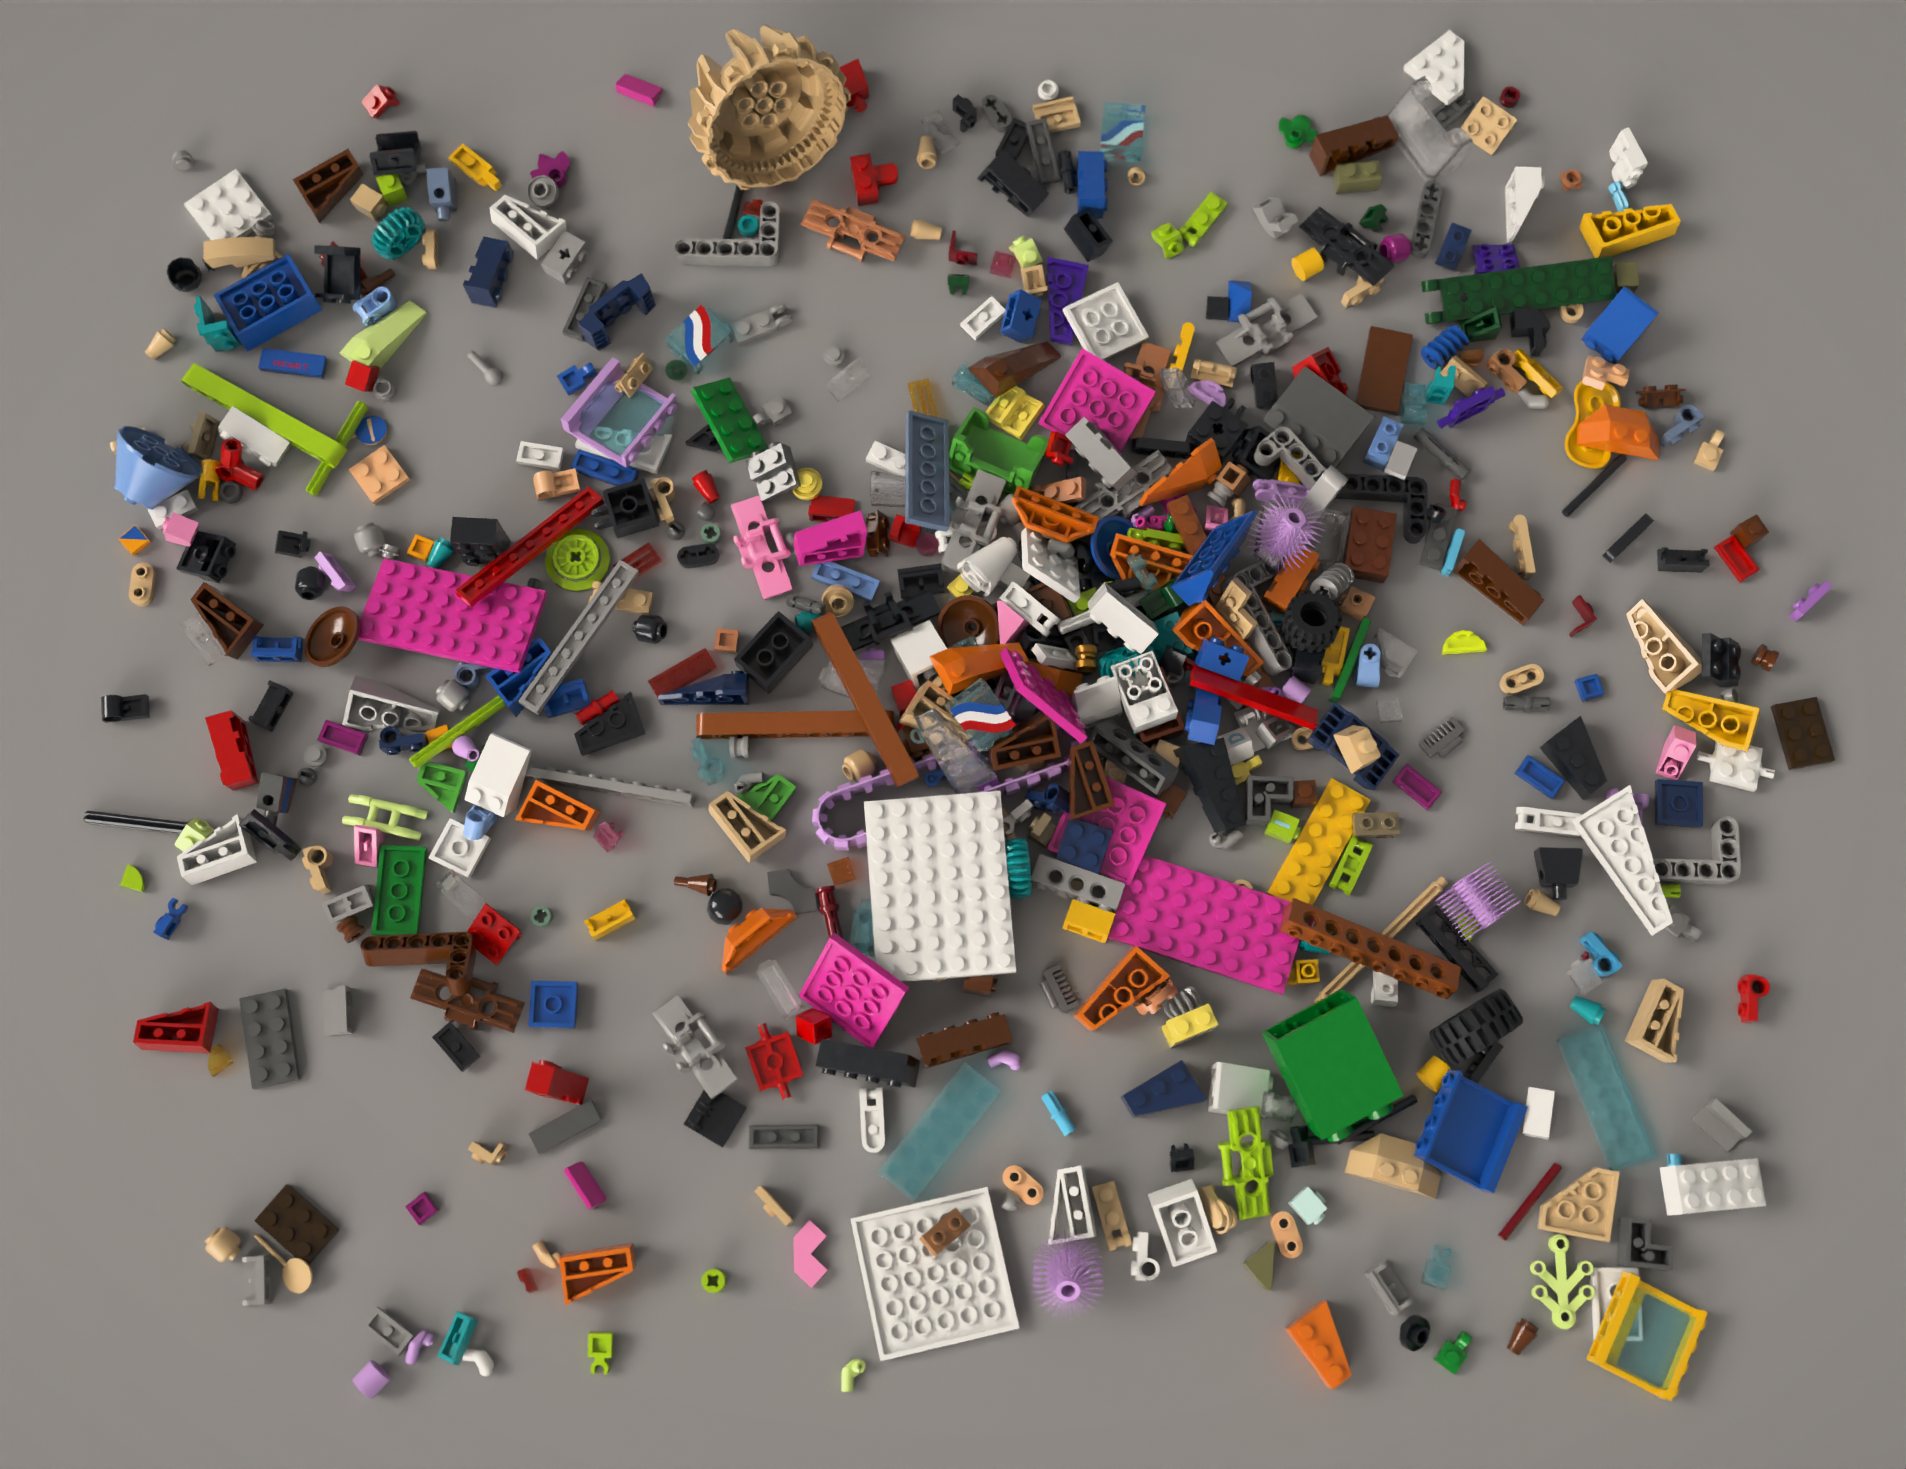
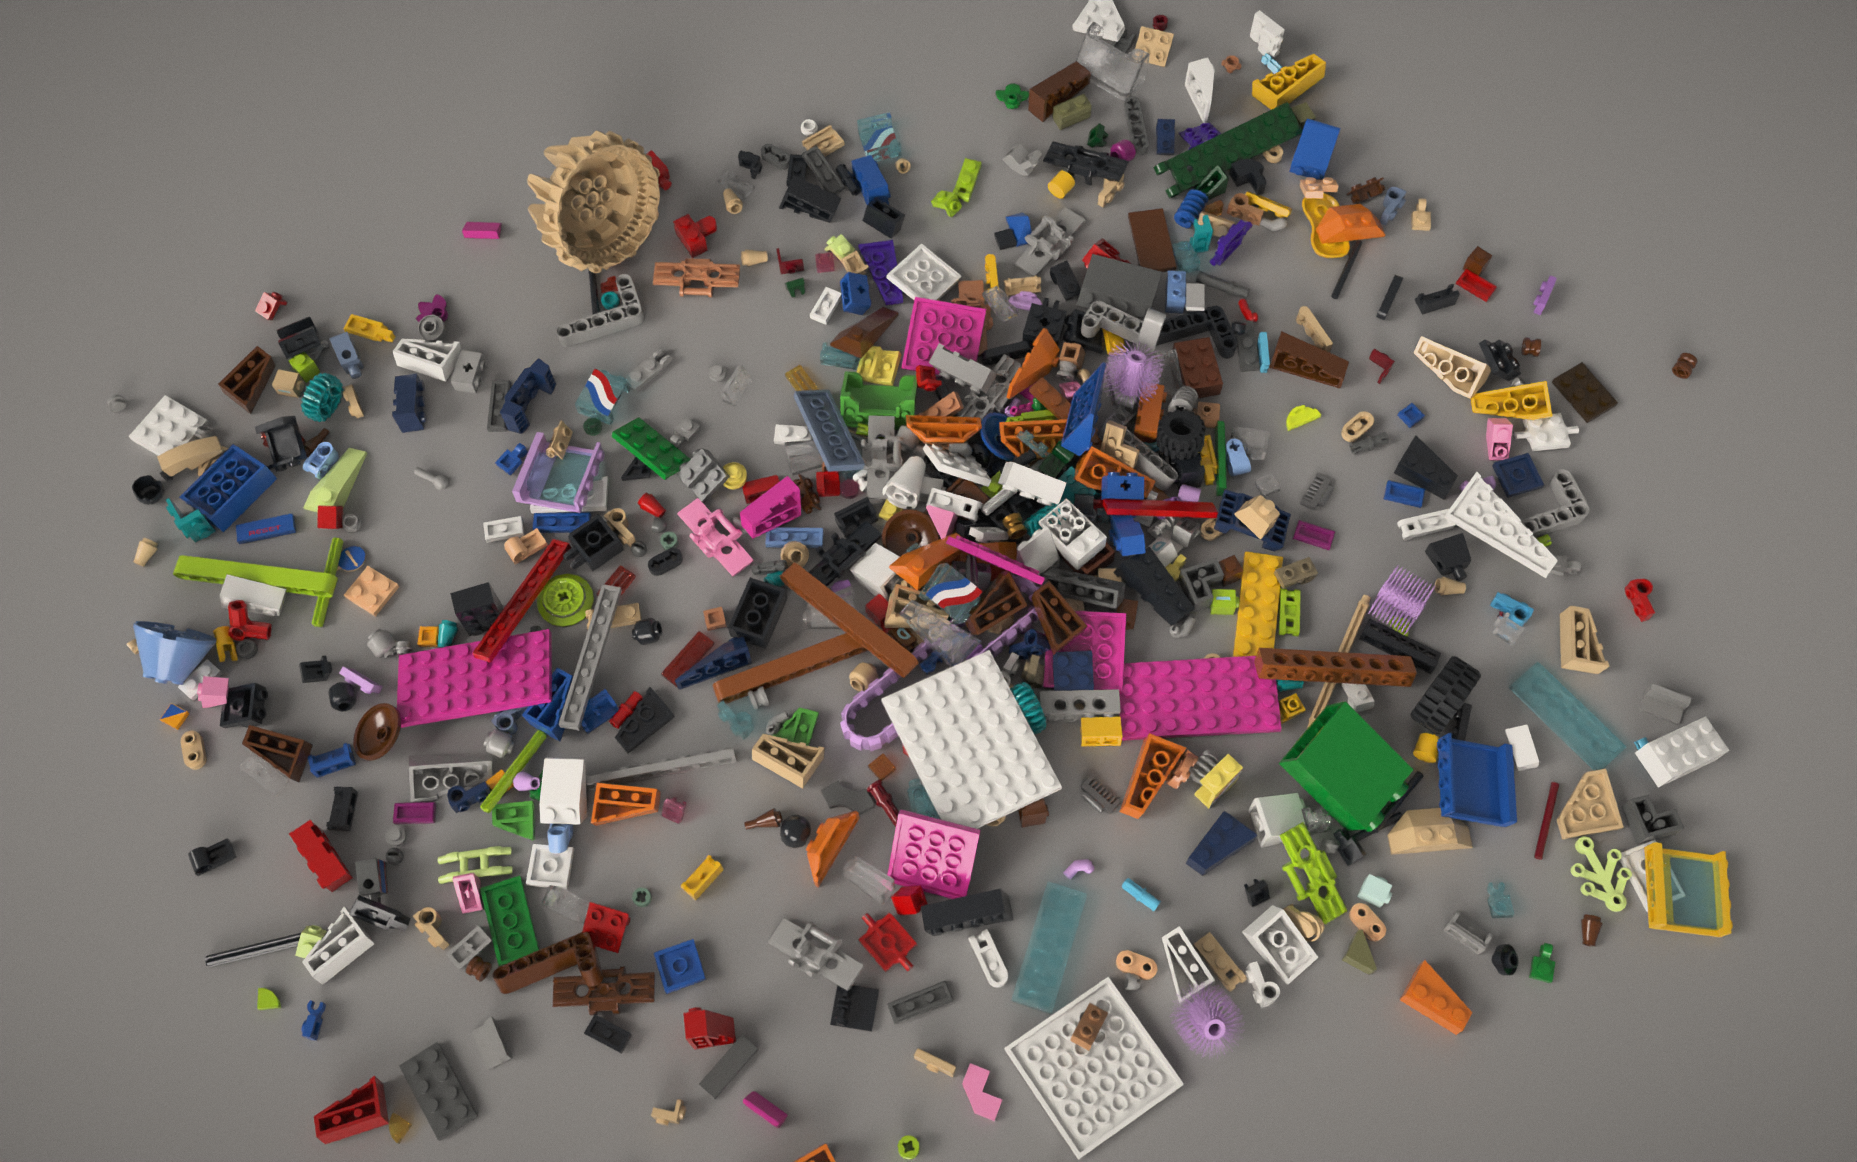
camera: 20 degrees left, 10 degrees down
(203, 437) = (207, 612): dark tan tile -> none
(964, 1040) = (1039, 864): reddish brown wedge -> none
(1265, 488) = (1102, 351): lavender hinge -> none
(1588, 1009) = (1522, 654): teal cone -> none

